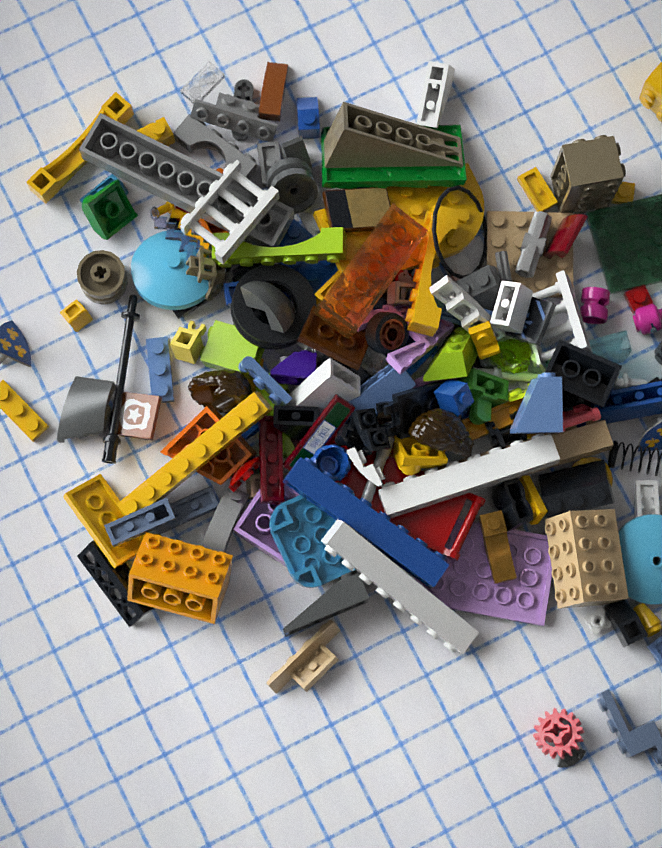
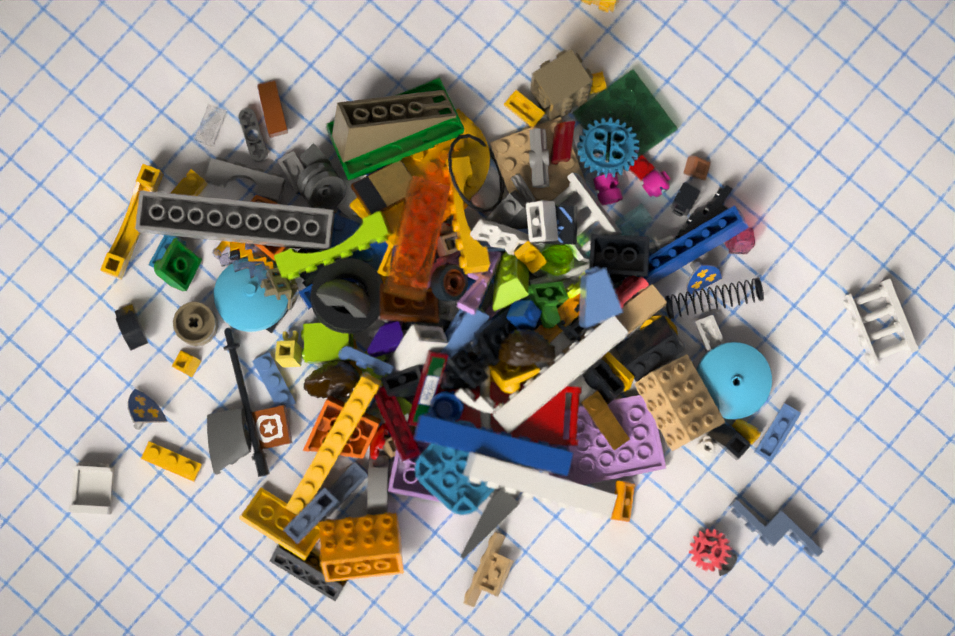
camera: 20 degrees left, 5 degrees up
(33, 255) = (130, 327): none -> black brick
(234, 115) = (249, 144): light grey bracket -> none
(238, 232) = (295, 248): white fence -> none
(308, 117) = (310, 120): blue slope -> none
(435, 93) = (408, 60): white slope -> none
(483, 643) = (623, 502): none -> light orange brick
(630, 269) = (590, 145): none -> dark azure gear

